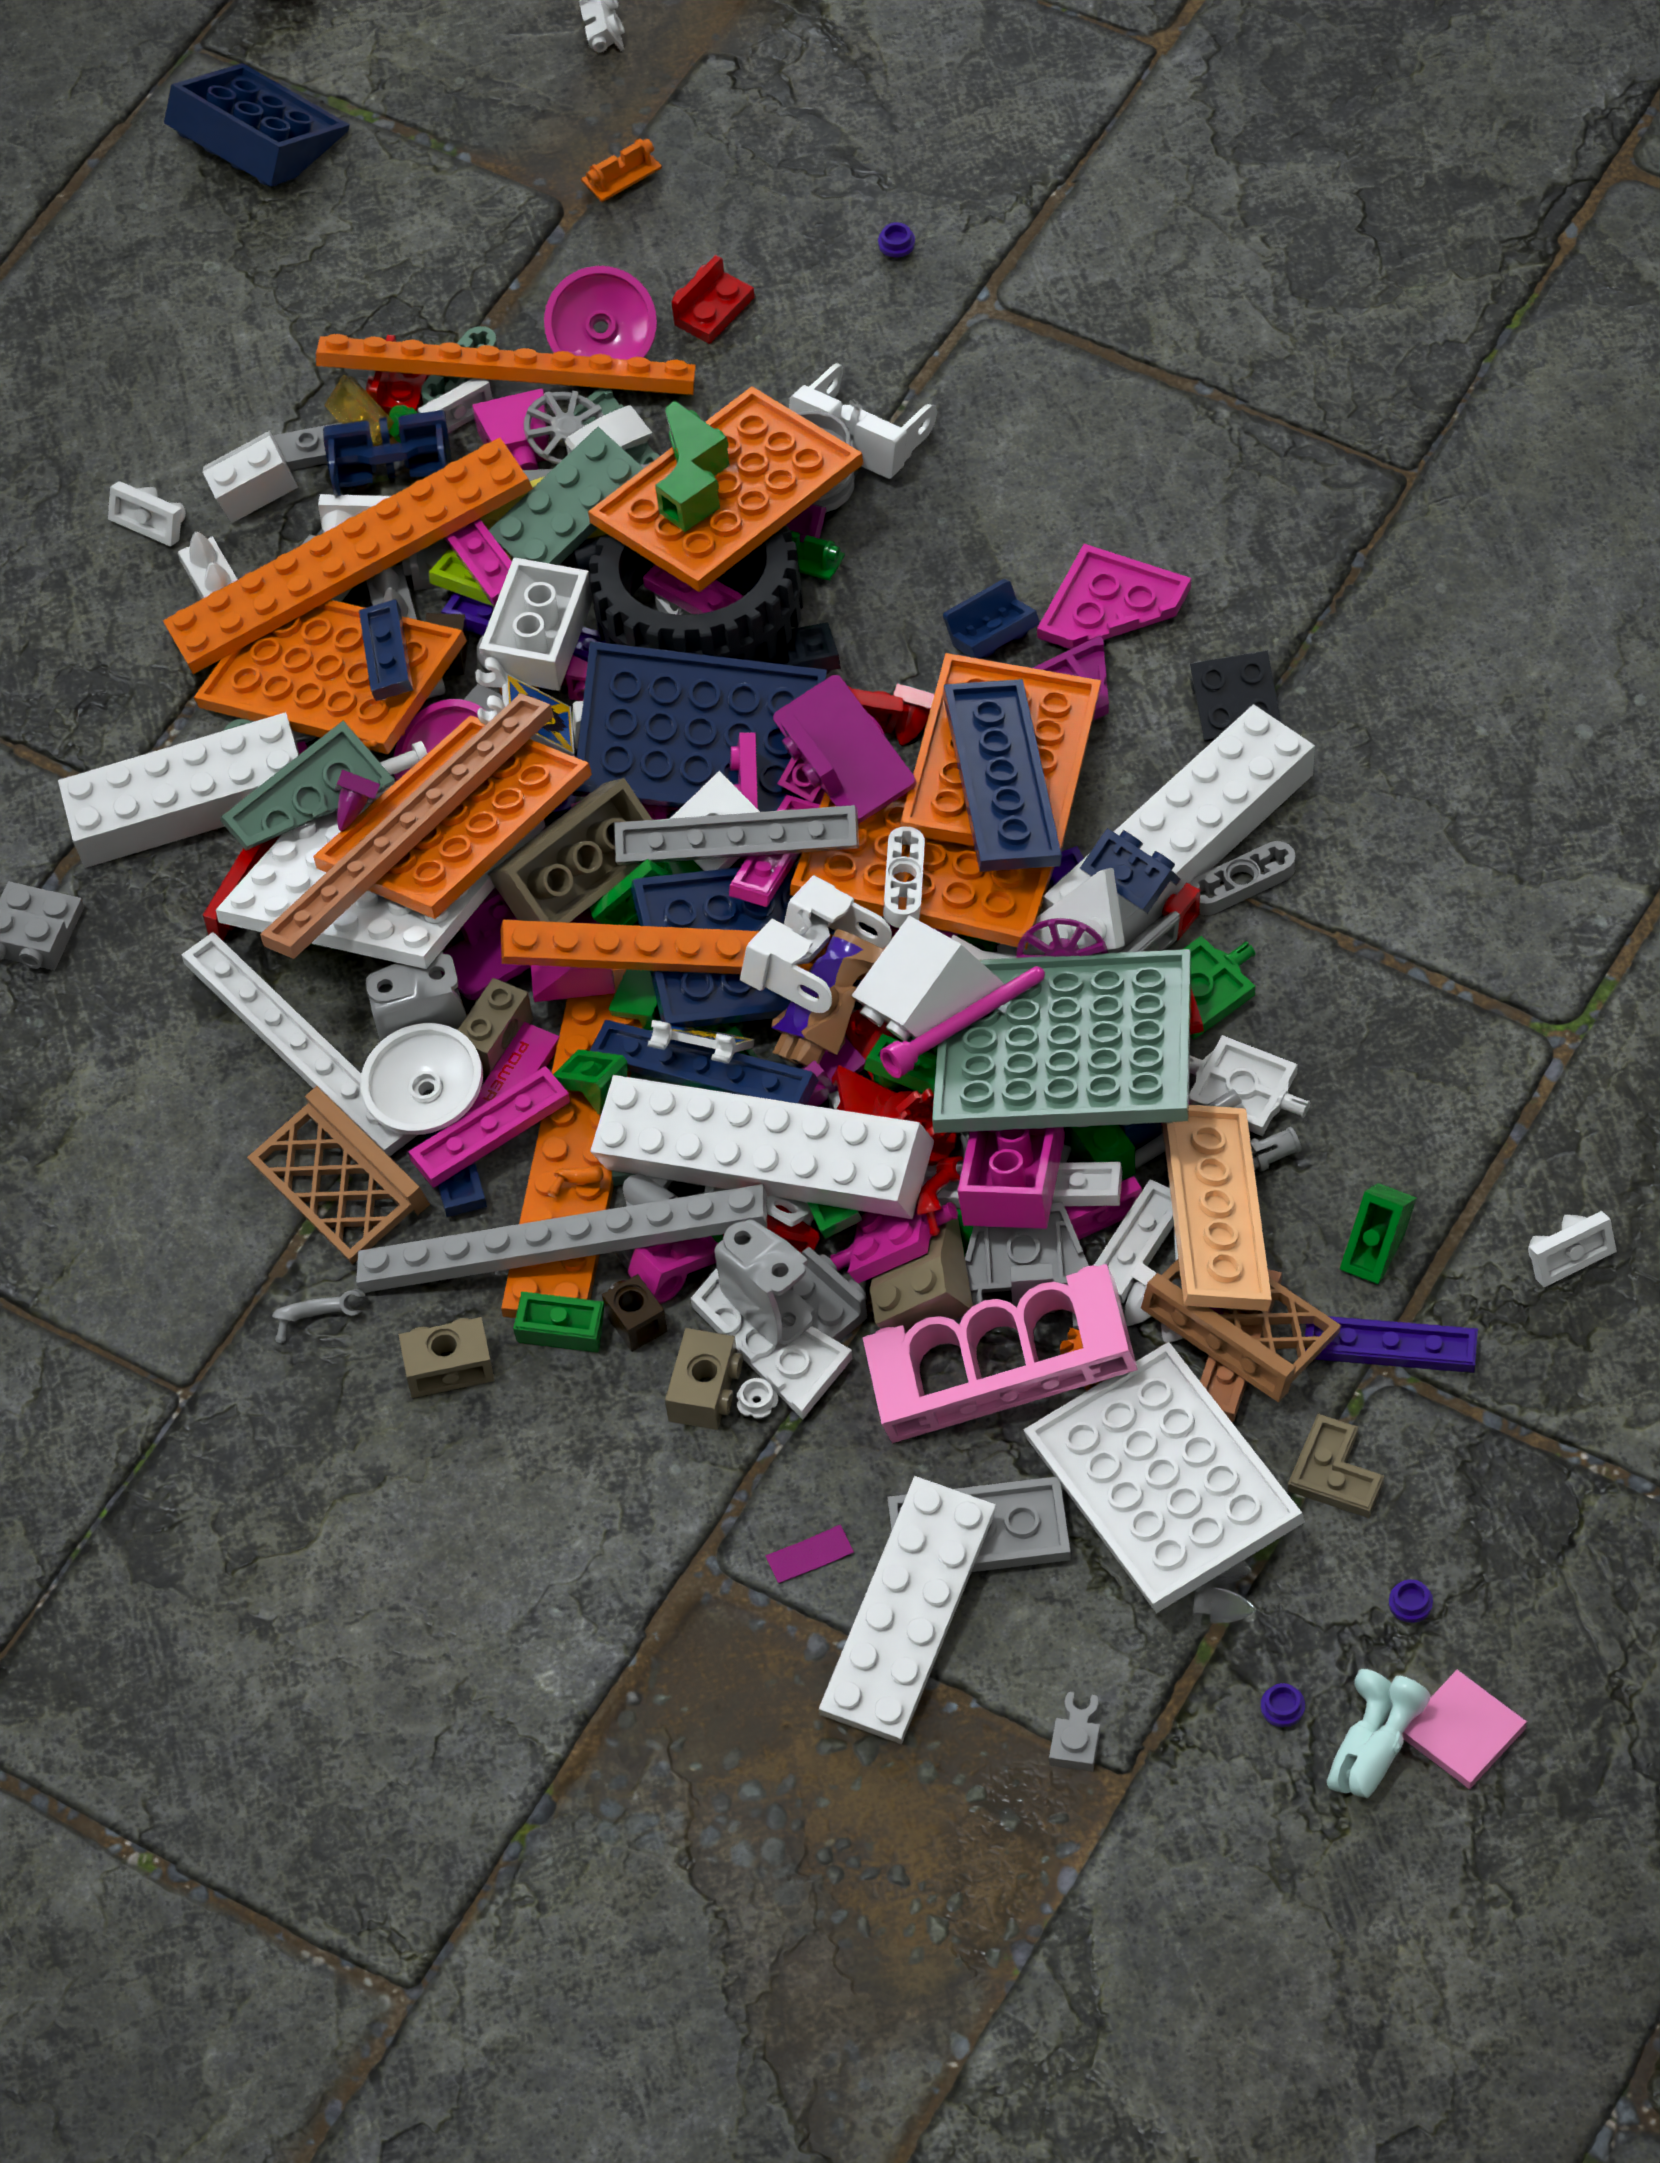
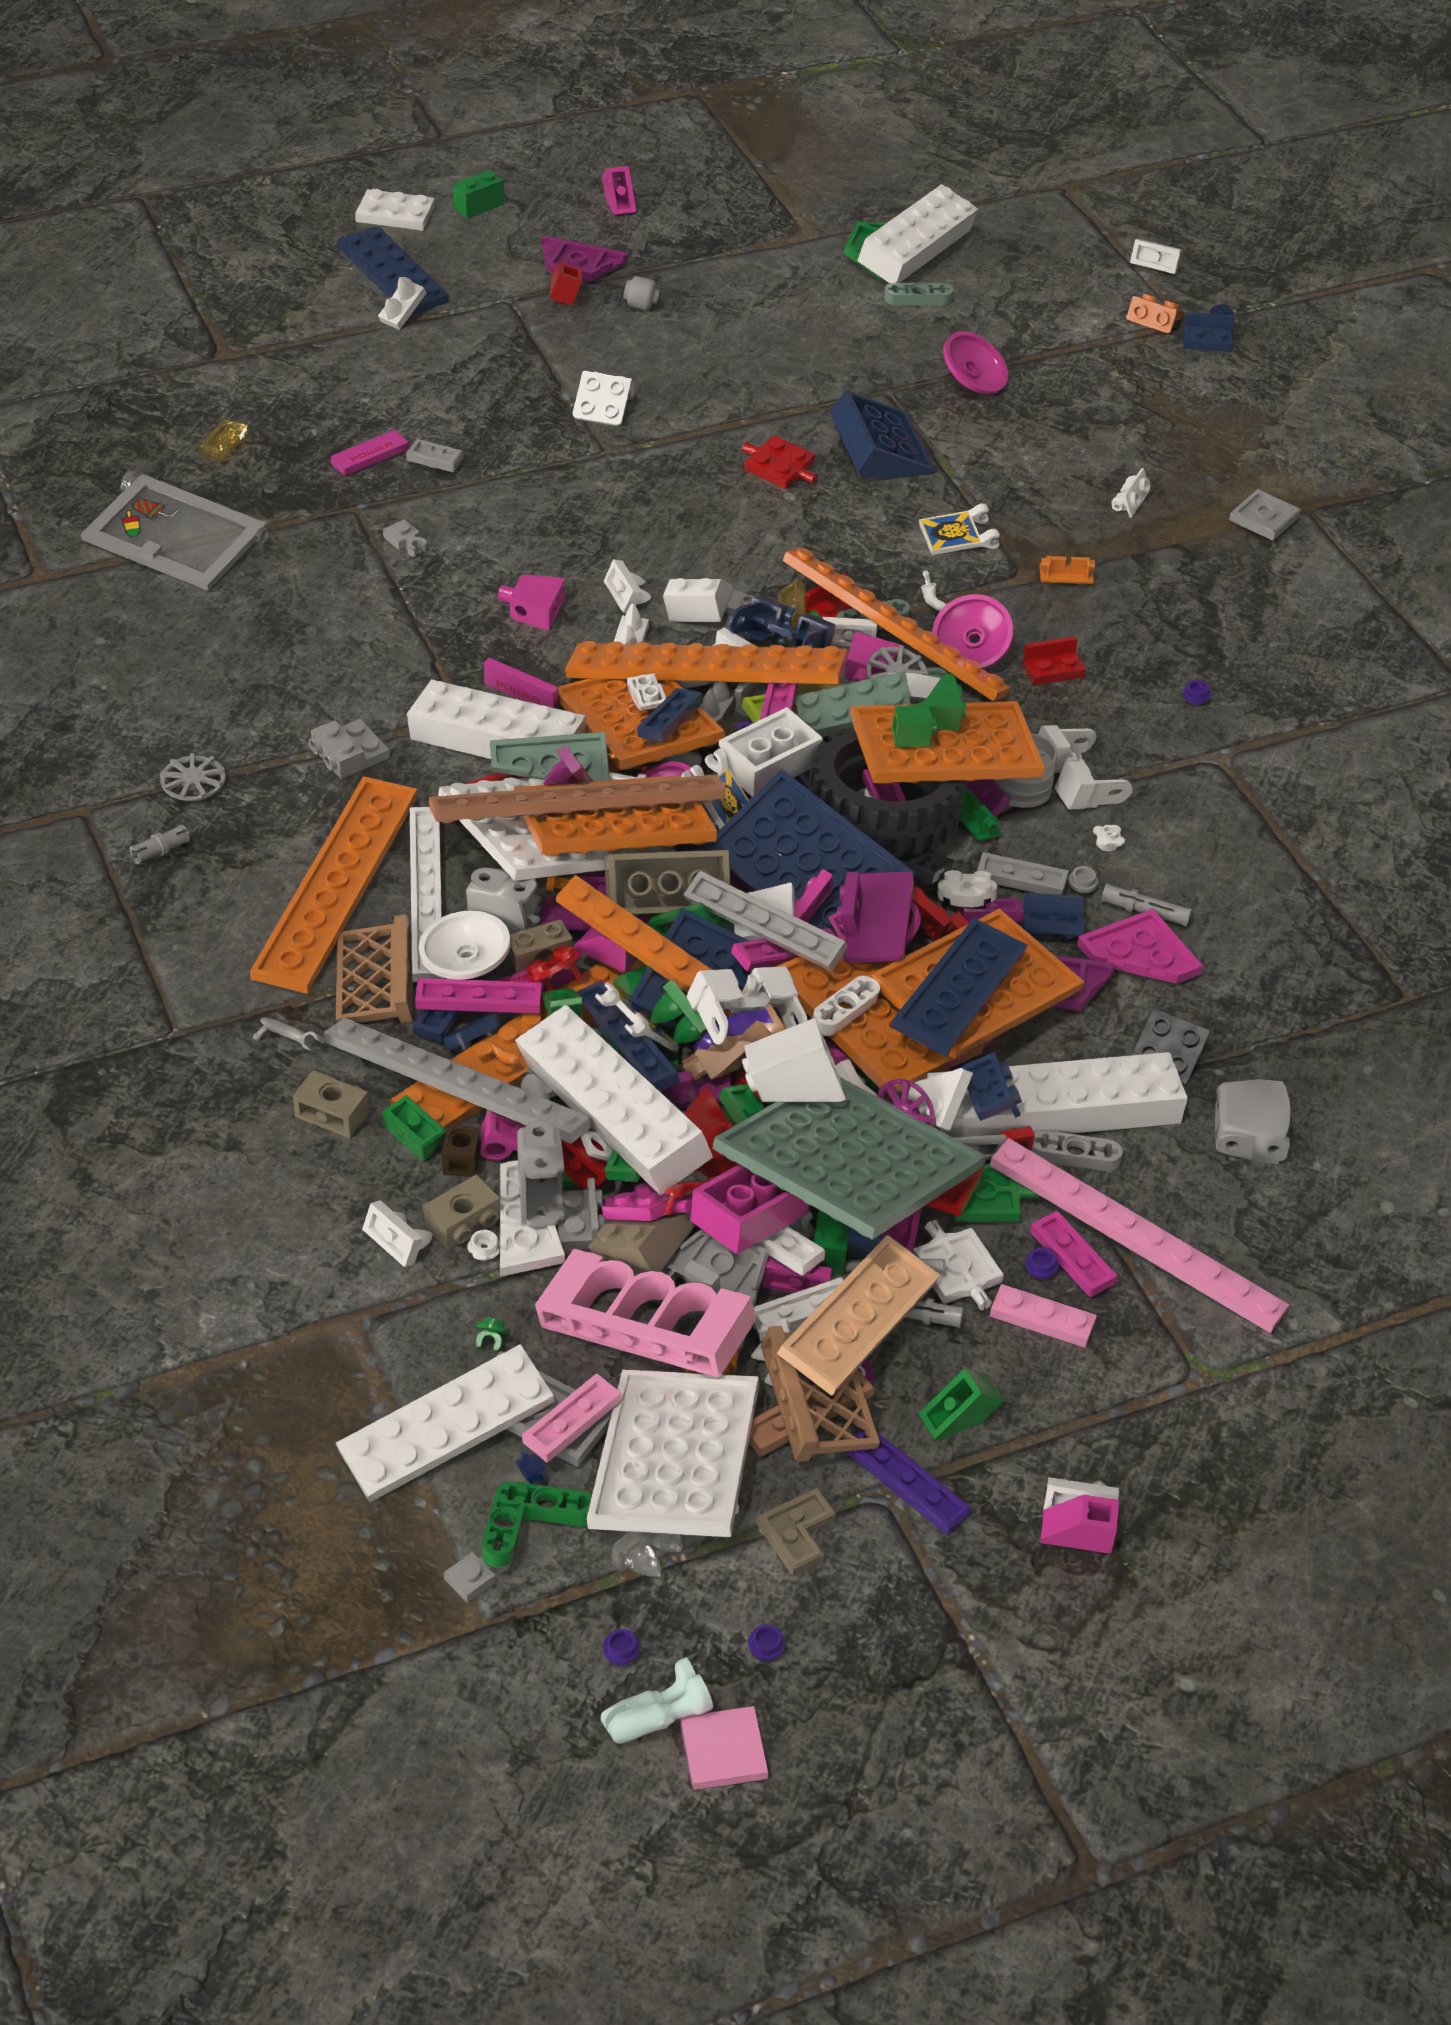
camera: 30 degrees right, 10 degrees down
(58, 597) = (534, 599): none -> dark pink torso
(153, 718) = (520, 684): none -> dark pink tile
(162, 227) = (779, 462): none -> red plate
(187, 1102) = (333, 885): none -> orange plate
(320, 638) = (645, 691): none -> white slope
(447, 196) = (958, 531): none -> flag
(493, 297) = (929, 593): none -> white piece
(511, 1172) = (461, 1038): none -> dark blue plate
(537, 1037) = (563, 959): none -> red plate
(655, 1451) = (394, 1234): none -> white tile
(722, 995) = (671, 1006): none -> green tile
(809, 1554) = (427, 1355): magenta sticker -> none
(855, 1479) = (491, 1328): none -> green plate
(874, 648) = (967, 889): none -> white plate
(901, 1056) = (738, 1095): dark pink piece -> none
(912, 592) = (1024, 874): none -> light grey plate
(919, 656) = (1009, 906): none -> magenta plate
(959, 485) = (1108, 837): none -> white plate
(978, 555) = (1083, 879): none -> light grey plate
(1030, 1593) = (531, 1467): none -> clear blue plate
(1031, 1514) = (571, 1417): none -> bright pink plate
(1053, 546) = (1134, 901): none -> light grey pin
(1062, 1645) = (519, 1509): none -> green beam
(1318, 1026) = (1041, 1263): none -> dark purple plate
(1340, 993) = (1073, 1254): none -> dark pink plate
(1366, 1080) = (1043, 1315): none -> bright pink plate
(1385, 929) = (1140, 1235): none -> bright pink plate
(1389, 724) = (1251, 1119): none -> light grey piece
(1595, 1271) = (1081, 1523): none -> dark pink slope

